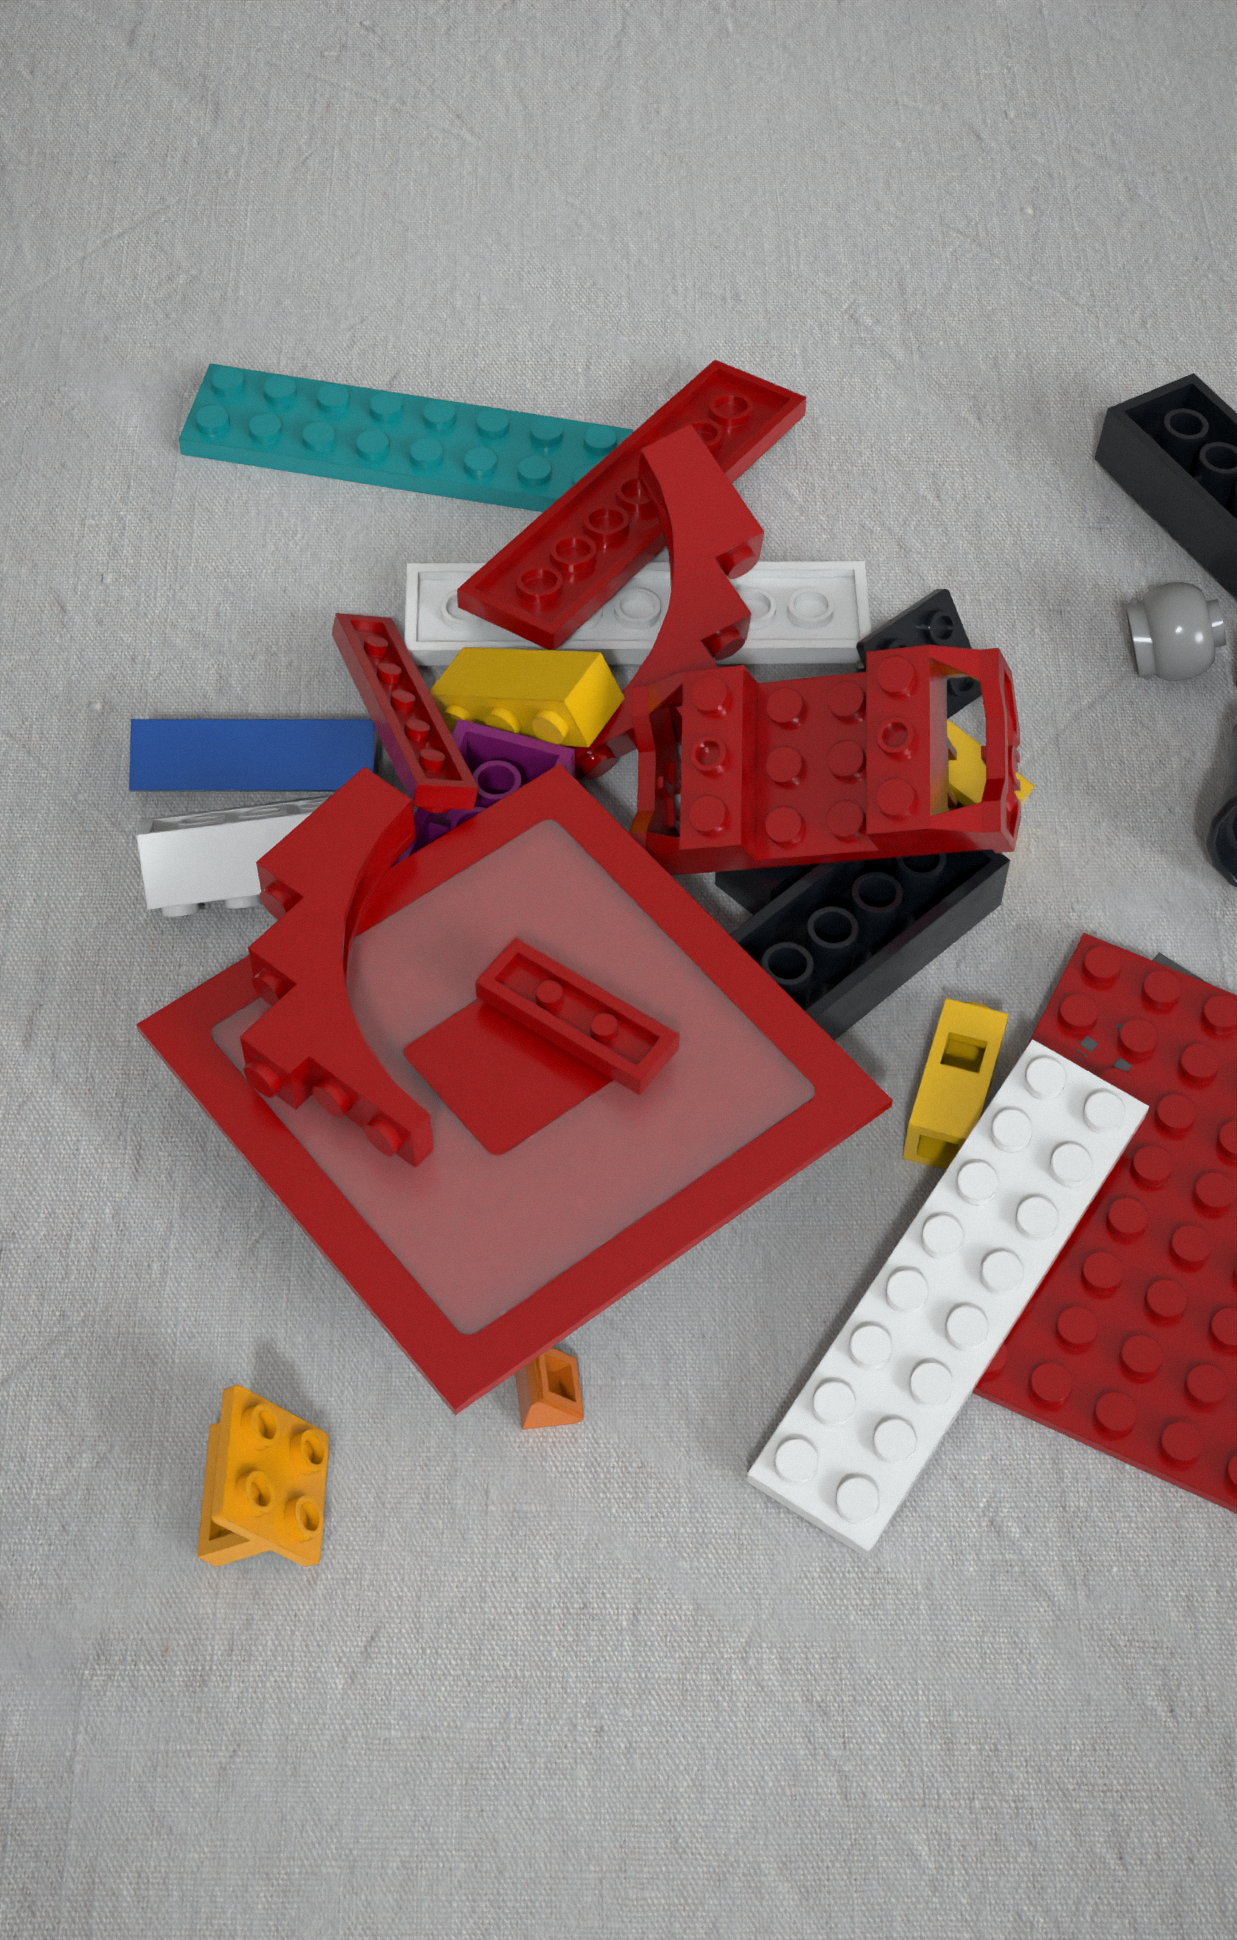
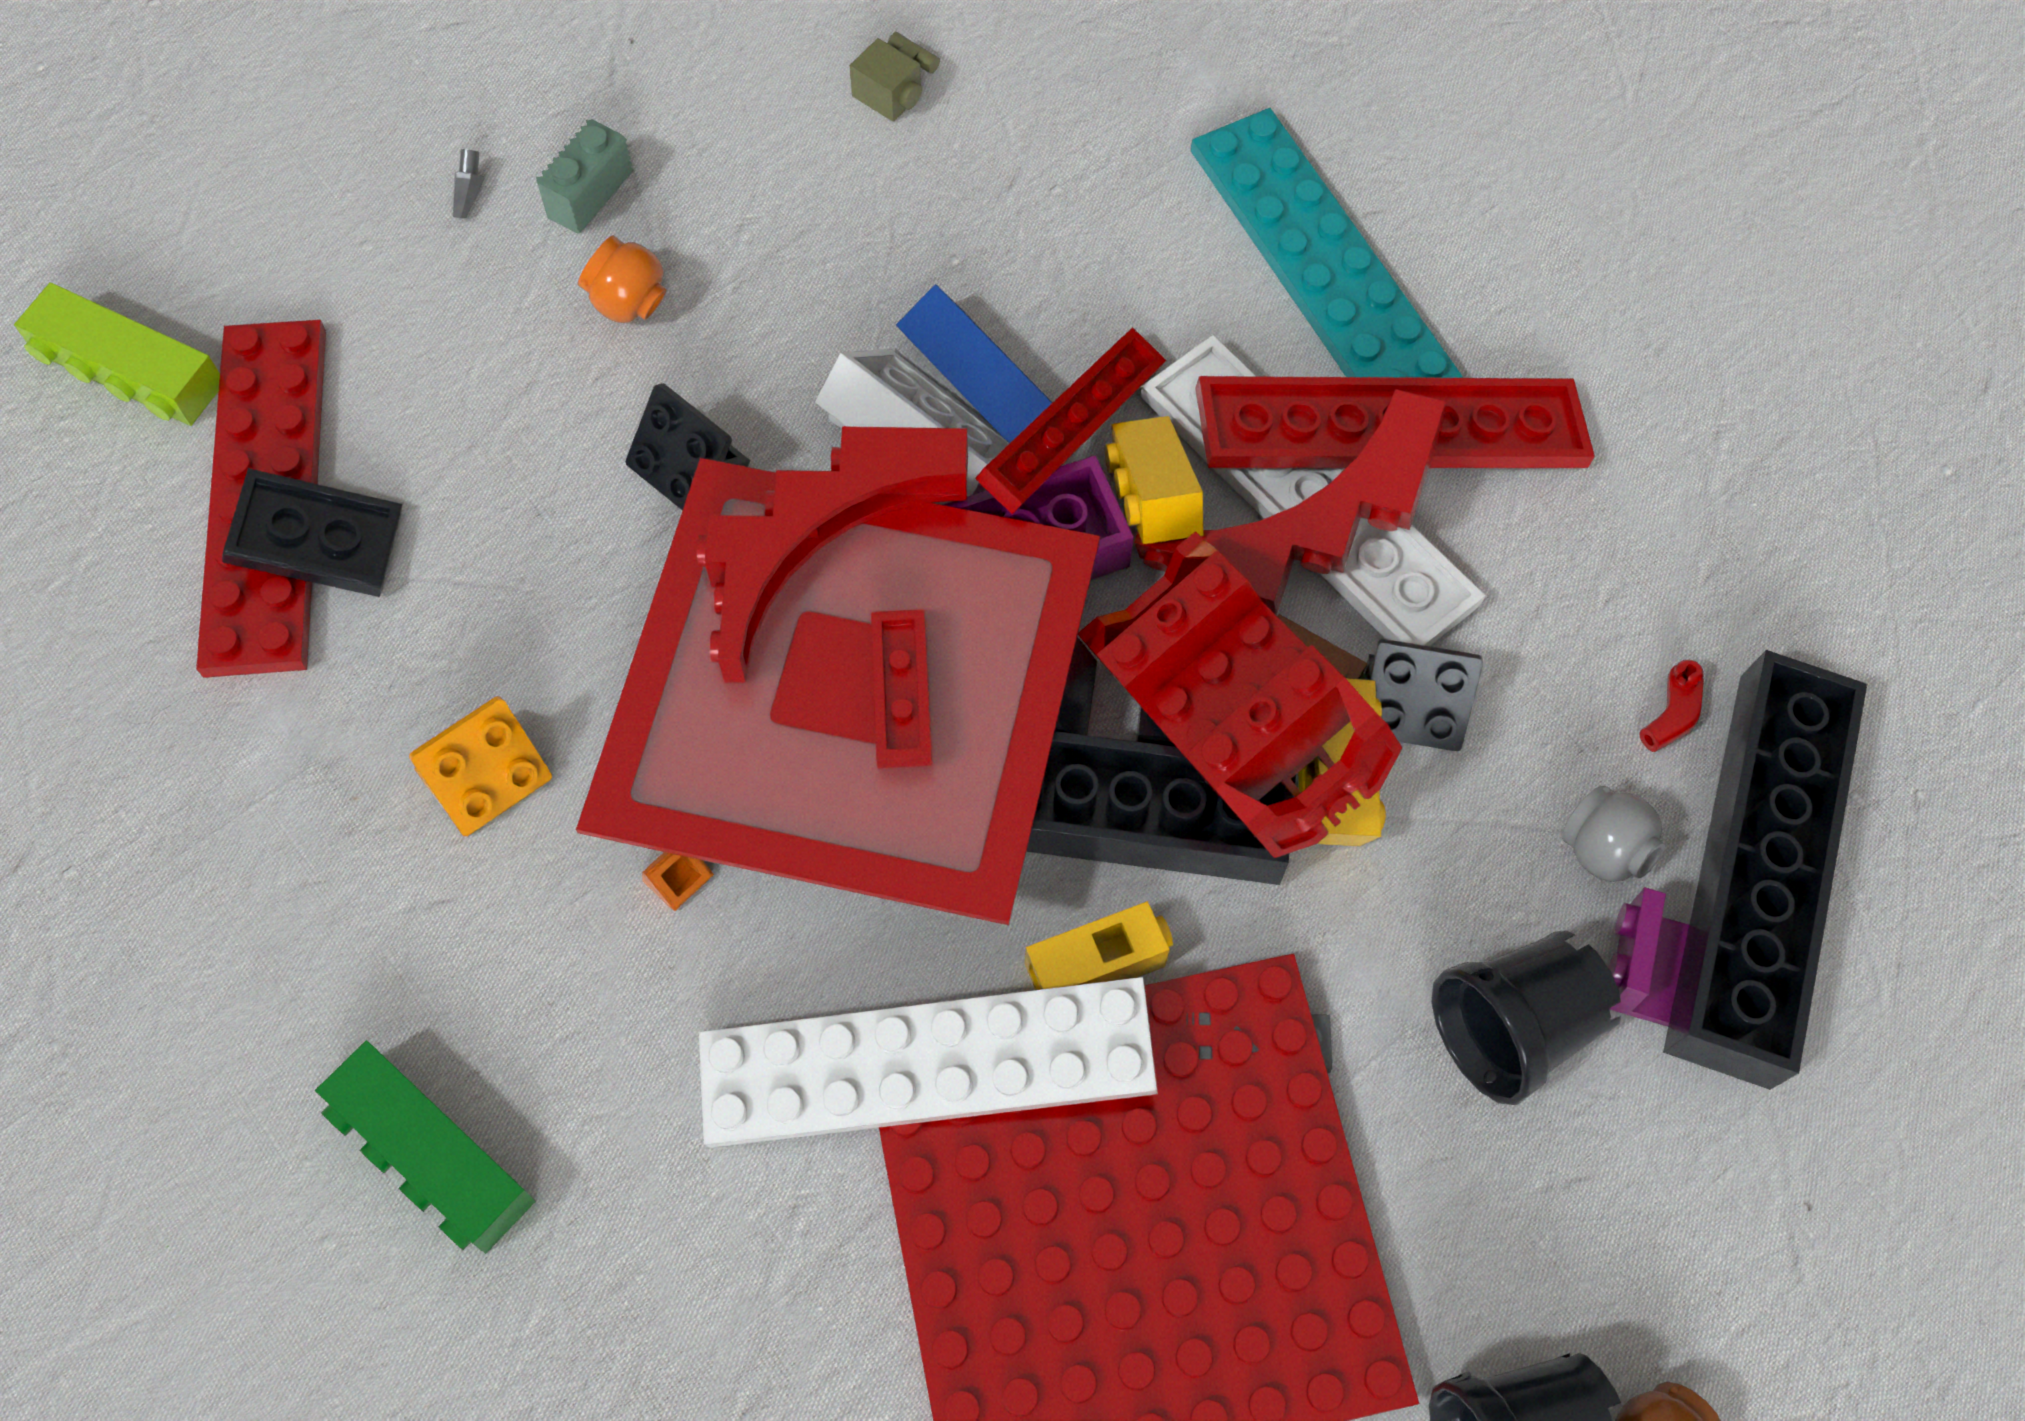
camera: 50 degrees right, 10 degrees up
(81, 1058) = (673, 441): none -> black bracket
(656, 1824) = (424, 1147): none -> green brick
(1085, 514) = (1682, 708): none -> red arm

